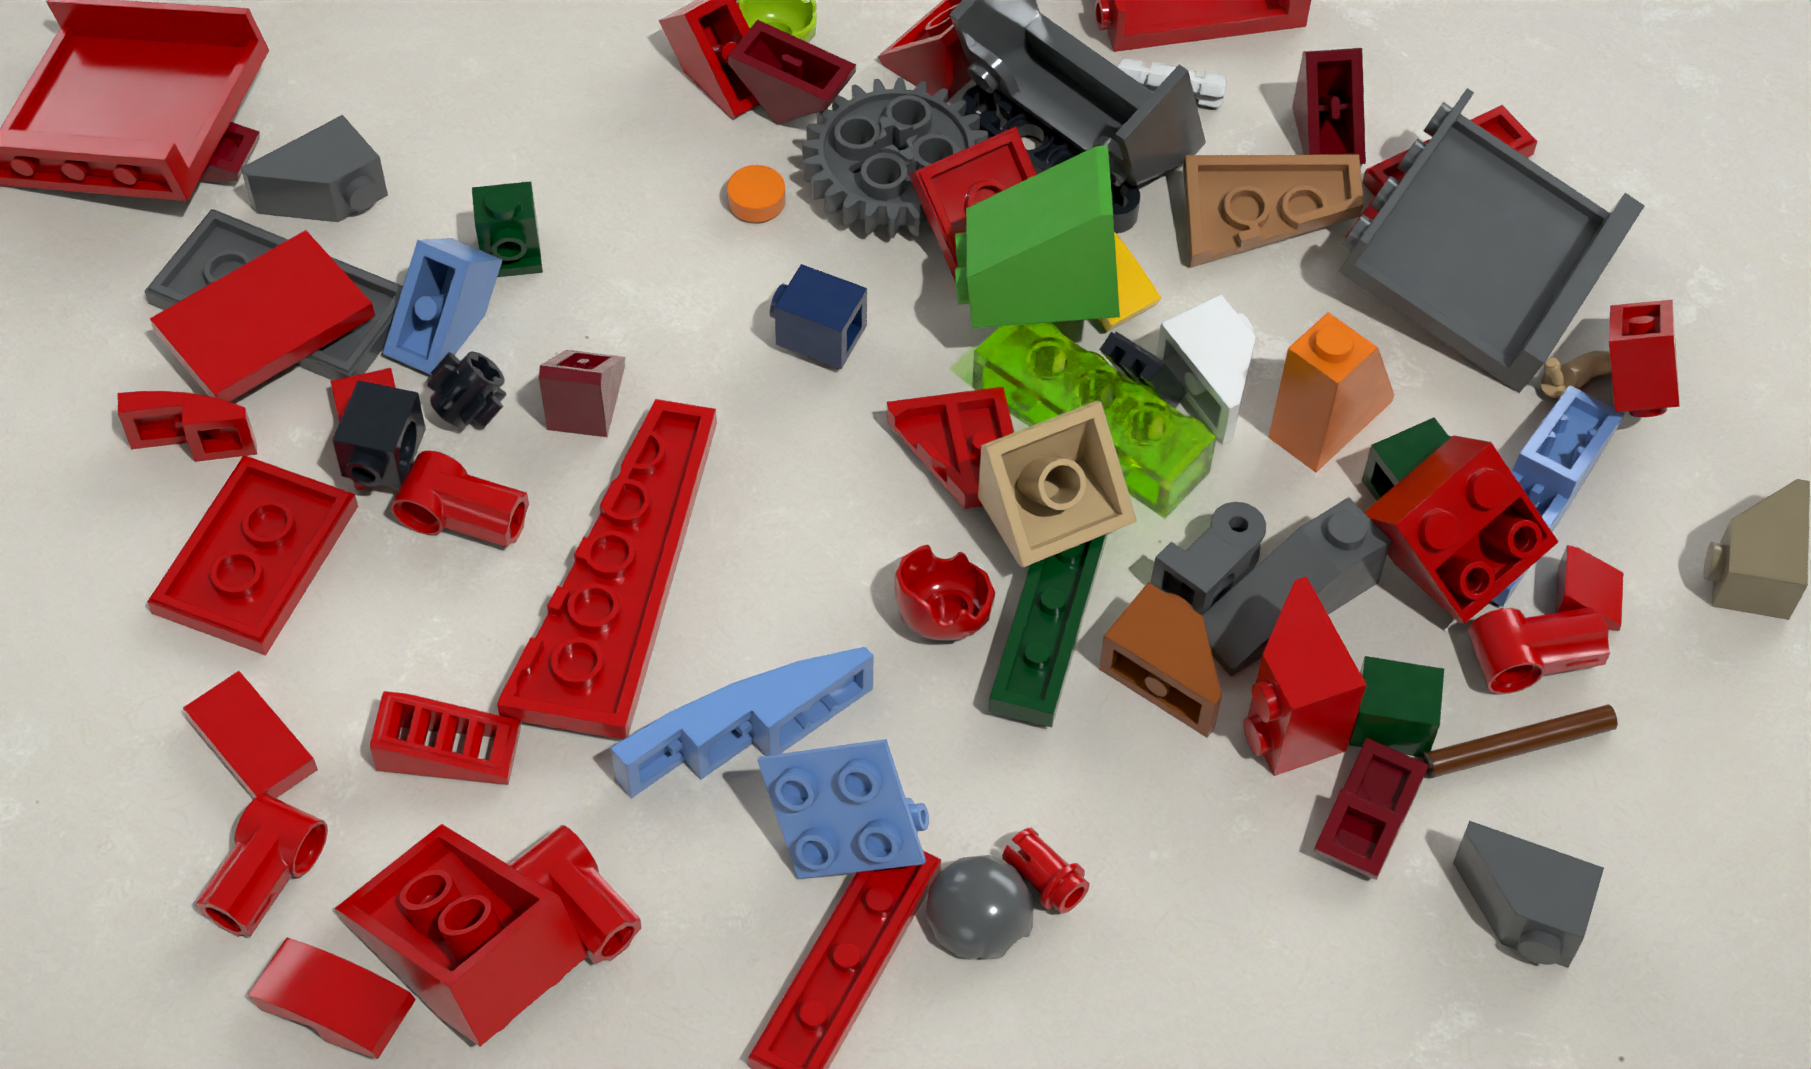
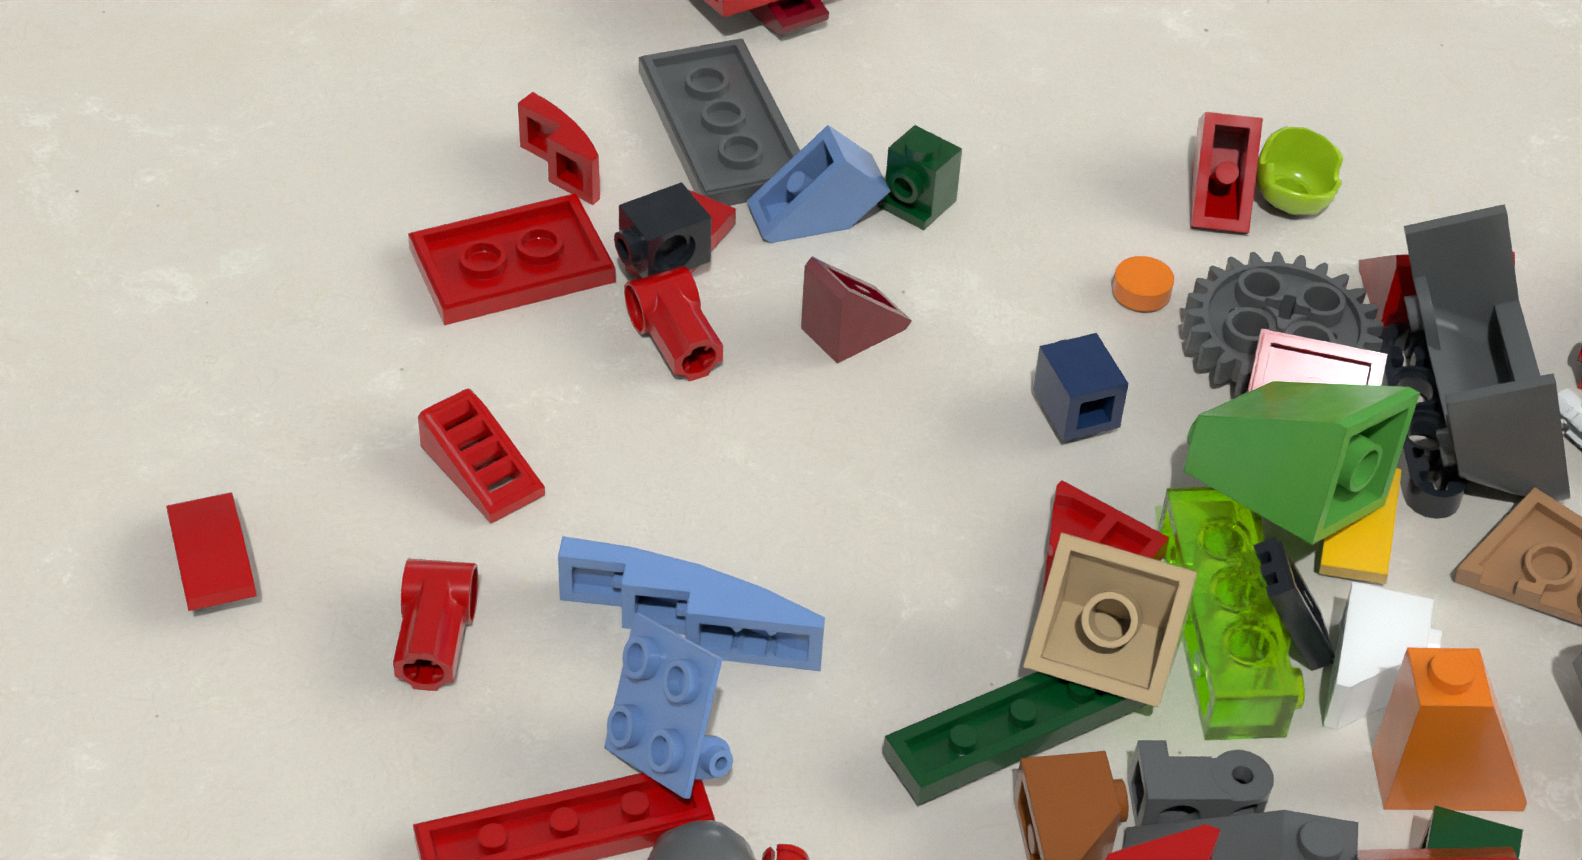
camera: 45 degrees right, 10 degrees down
(250, 737) = (366, 362): red tile -> none
(262, 317) = (686, 118): red tile -> none
(269, 849) = (293, 431): red piece -> none
(317, 175) = (833, 61): dark grey slope -> none
(465, 932) = (331, 584): red slope -> none
(467, 389) = (764, 253): black gear -> none
(605, 618) = (677, 470): red wing -> none
(788, 73) = (1254, 208): dark red slope -> none
(942, 595) = (938, 638): red hair -> none

